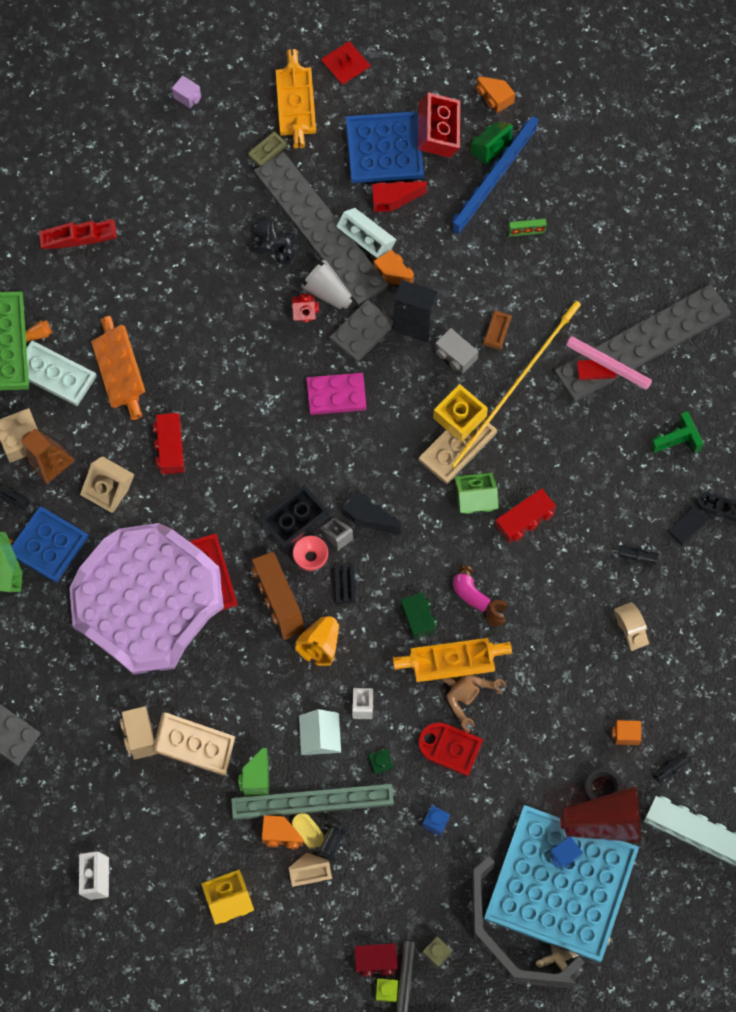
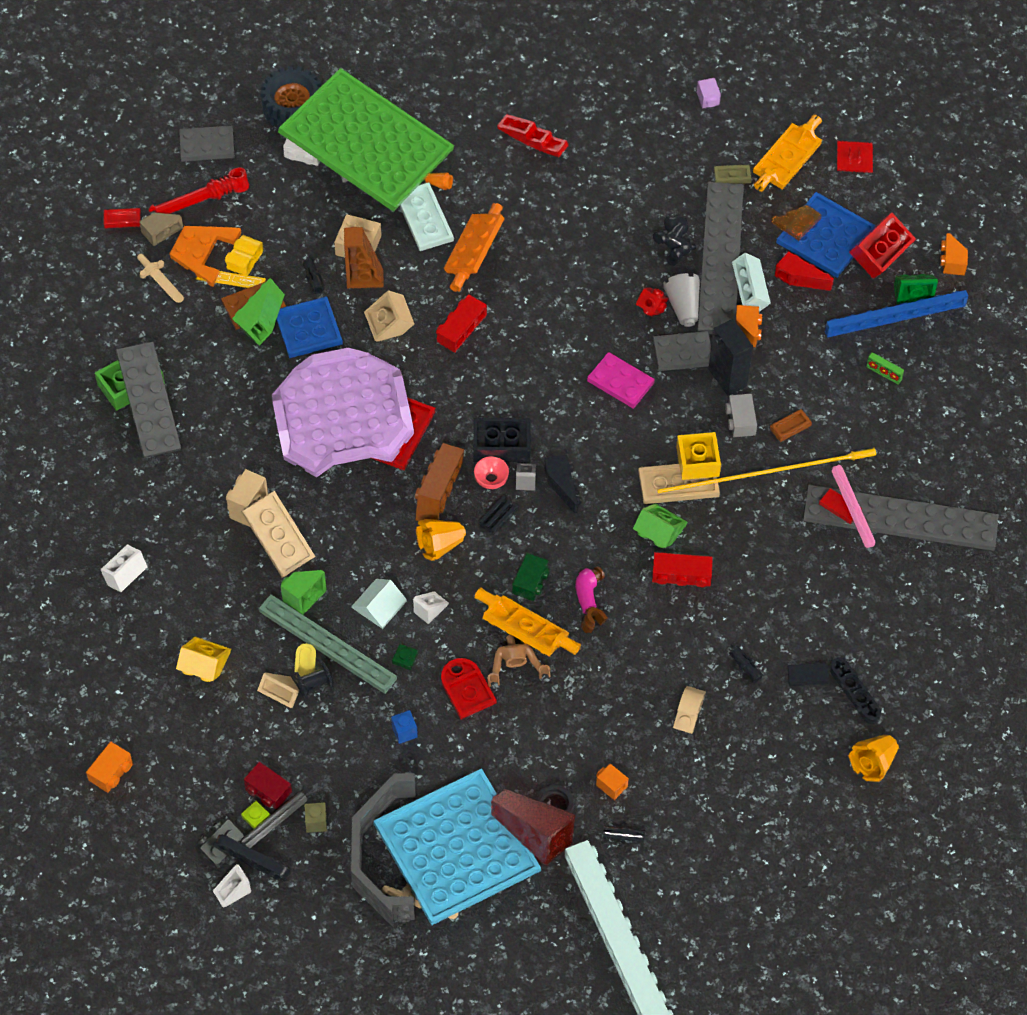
camera: 40 degrees right, 10 degrees down
(279, 831) = (283, 644): orange slope -> none
(357, 153) = (797, 221): none -> clear orange wing
(565, 854) = (476, 823): blue brick -> none
(679, 435) = (860, 603): green bracket -> none

